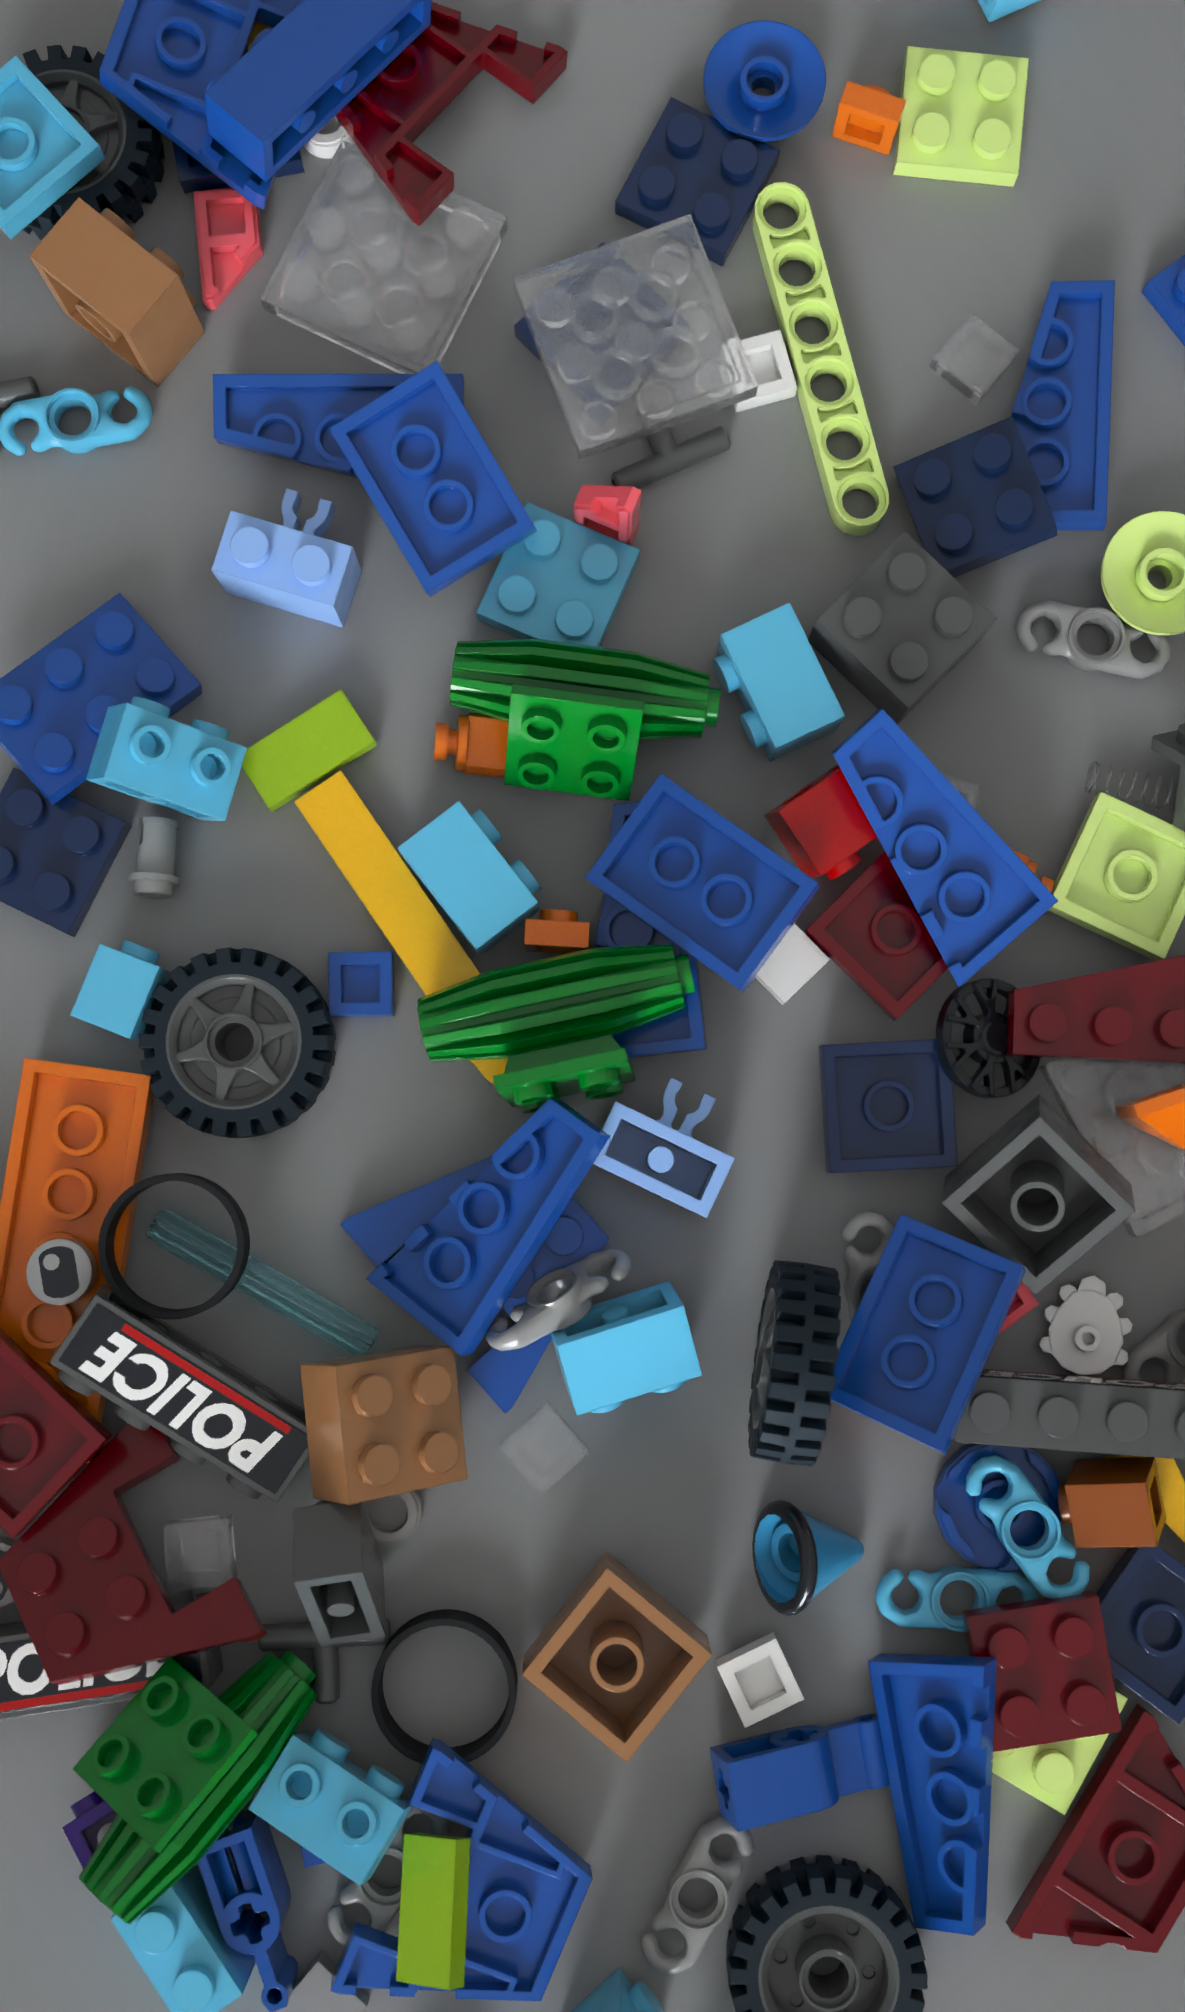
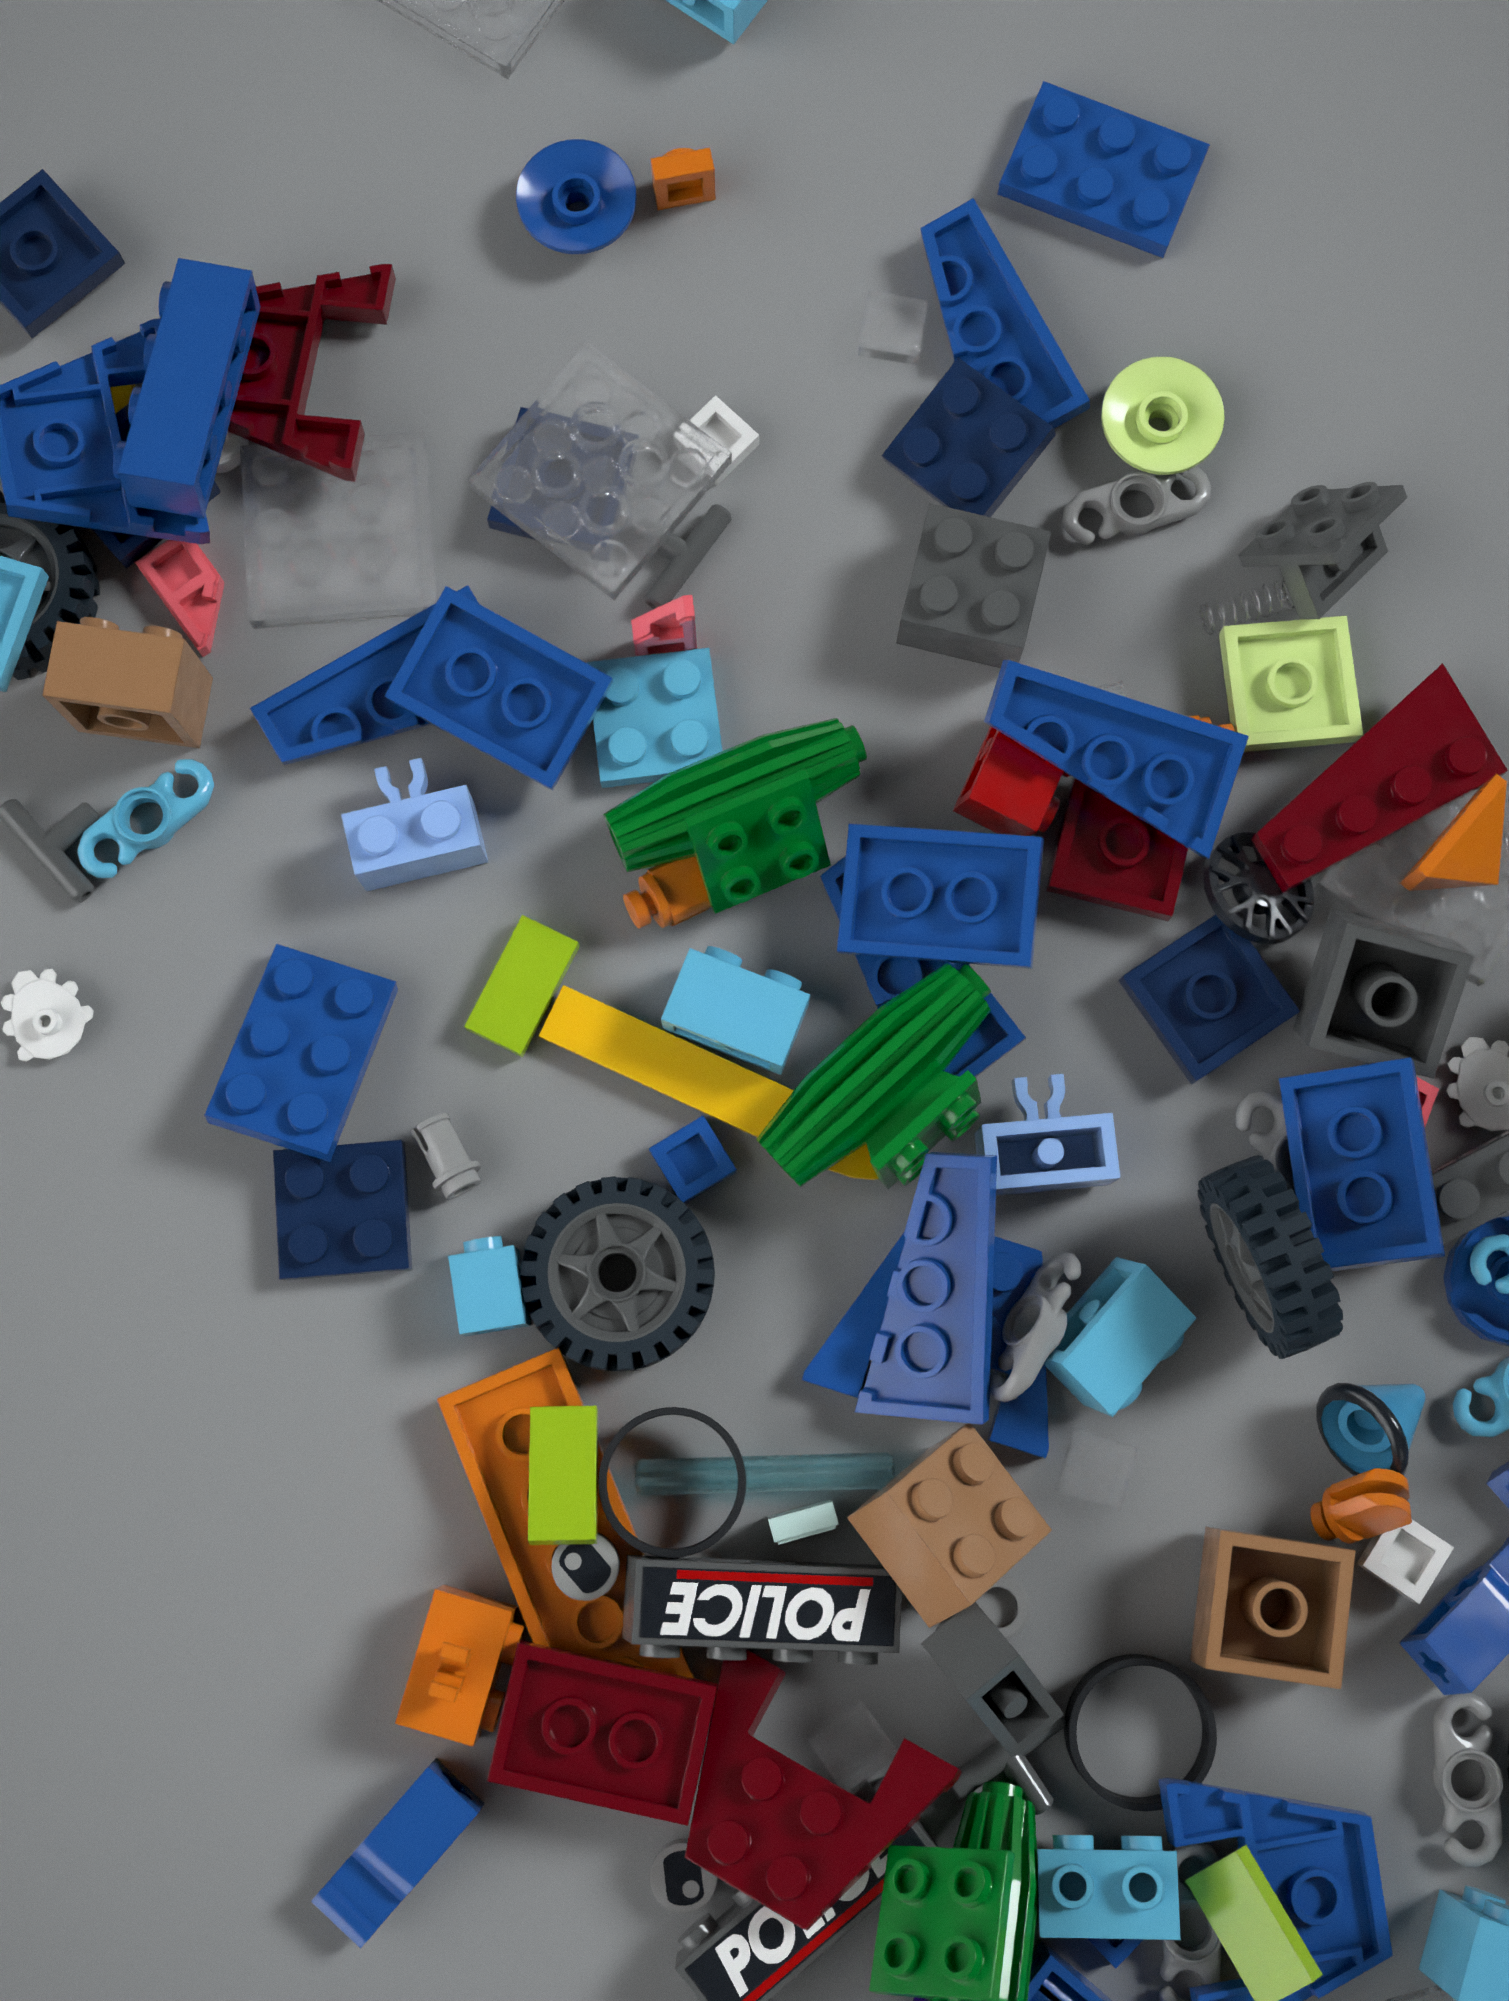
camera: 30 degrees left, 5 degrees down
(85, 1185) = (563, 1475): none -> lime tile
(167, 760) = (411, 1062): medium azure brick -> none
(267, 1343) = (803, 1522): none -> light aqua tile
(556, 932) = (838, 1014): orange plate -> none
(698, 171) = (561, 304): dark blue plate -> none
(746, 1618) = (1363, 1506): none -> orange arm
(777, 683) = (896, 692): medium azure brick -> none
(791, 965) = (1056, 925): white tile -> none
(827, 357) = (769, 395): yellowish green beam -> none
(961, 116) = (758, 134): yellowish green plate -> none

